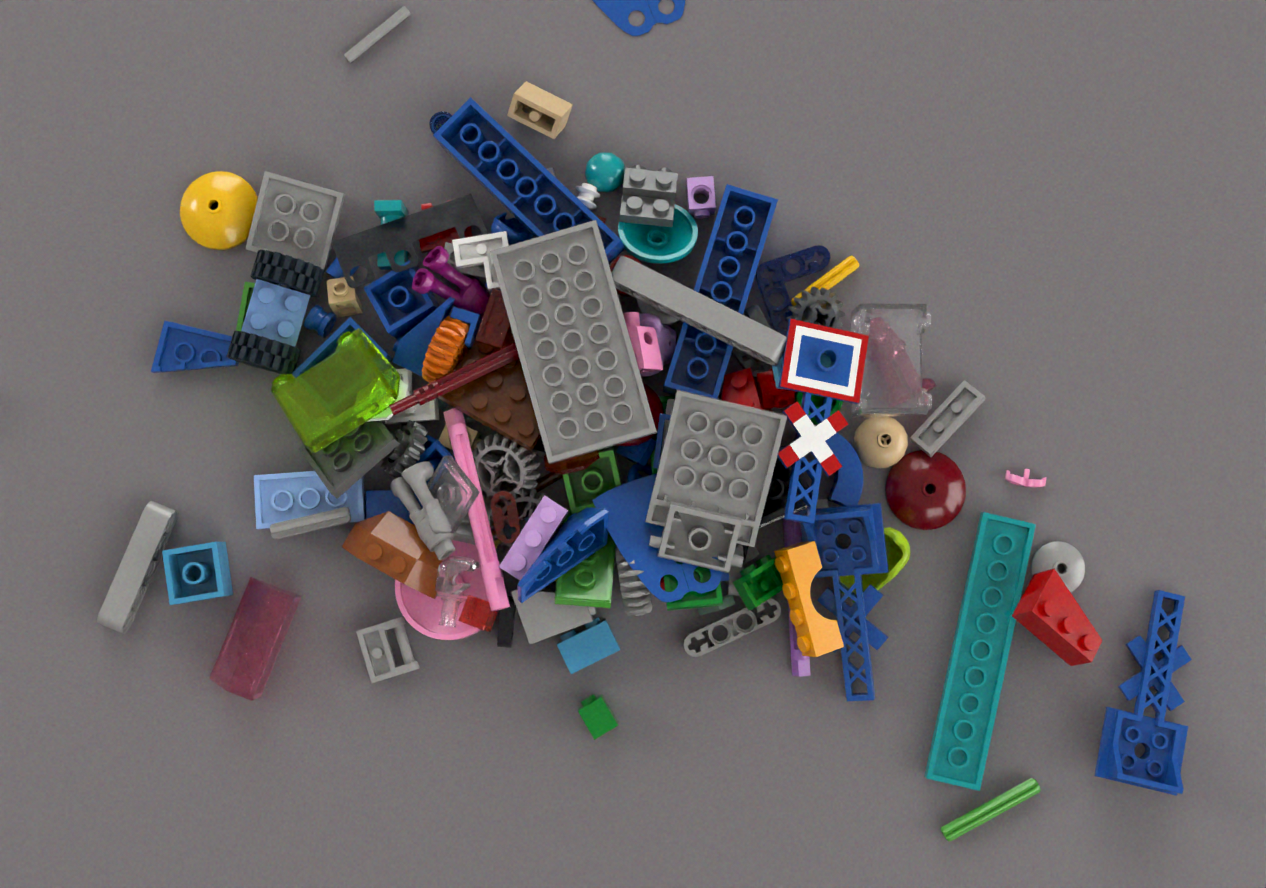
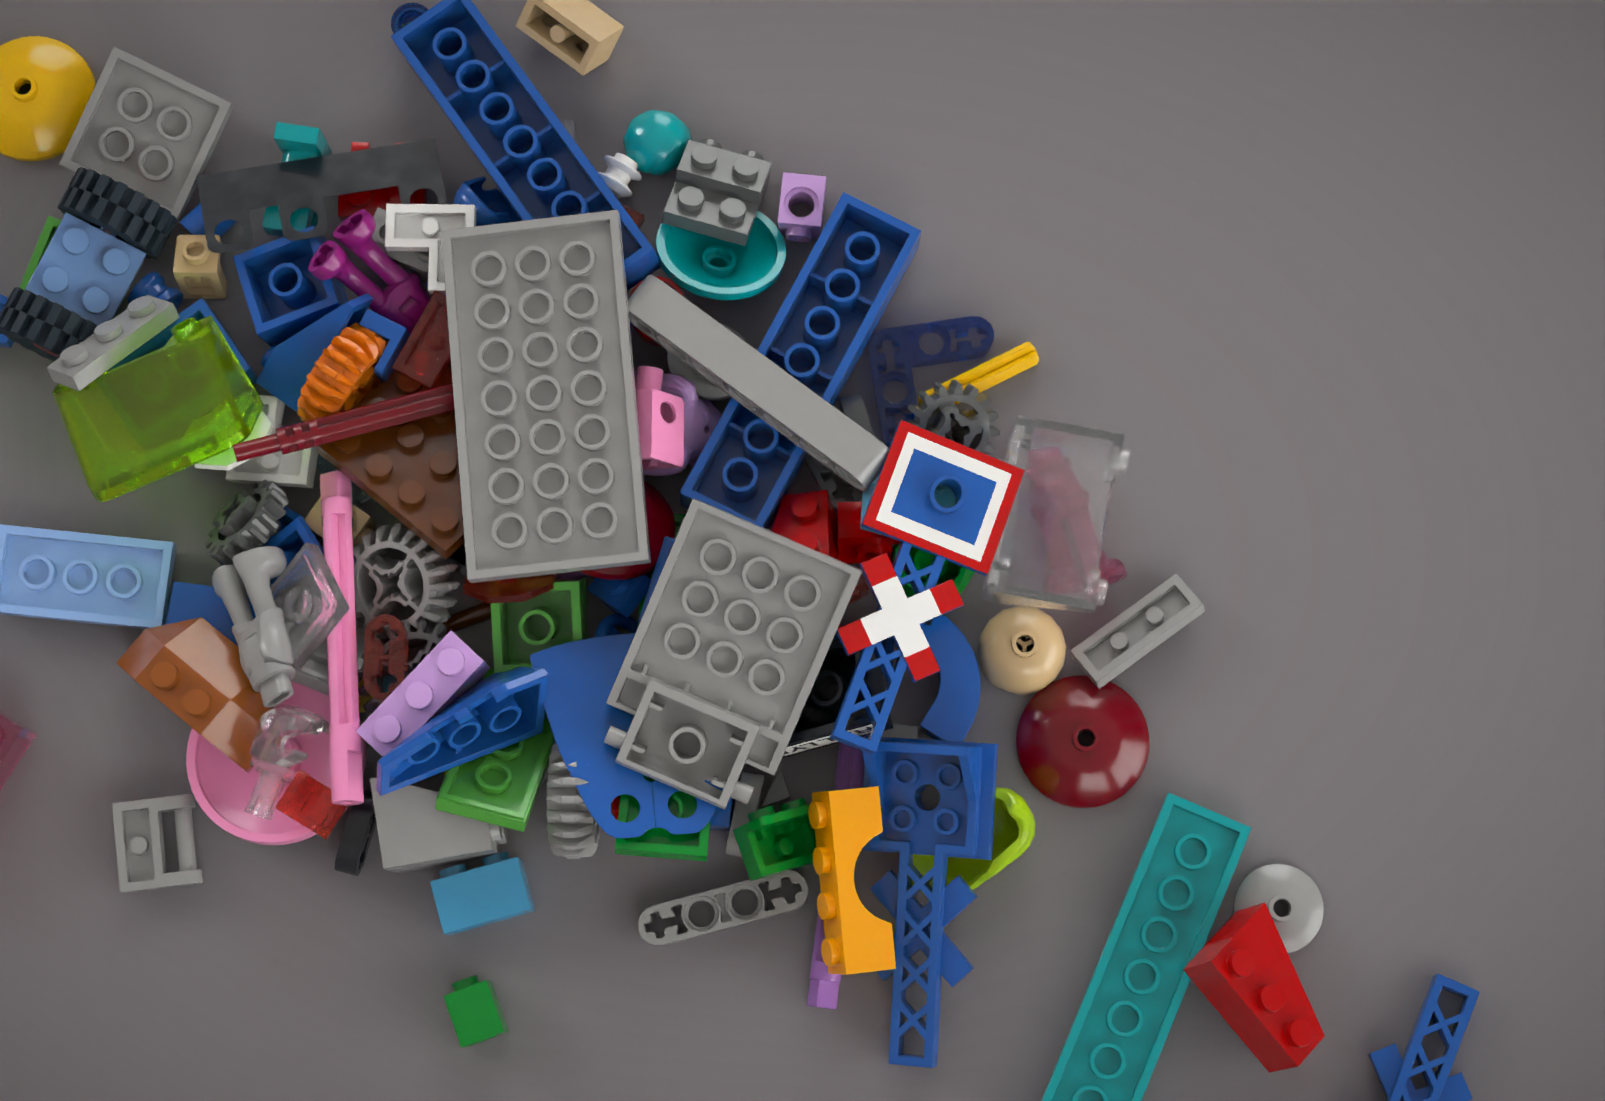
camera: 15 degrees right, 5 degrees down
(302, 354) = (112, 342): none -> light grey plate
(310, 523) = (73, 615): light grey axle -> none
(351, 456) = (159, 517): dark grey plate -> none
(728, 600) = (715, 865): sand green tile -> none
(1024, 481) = (1248, 755): bright pink piece -> none

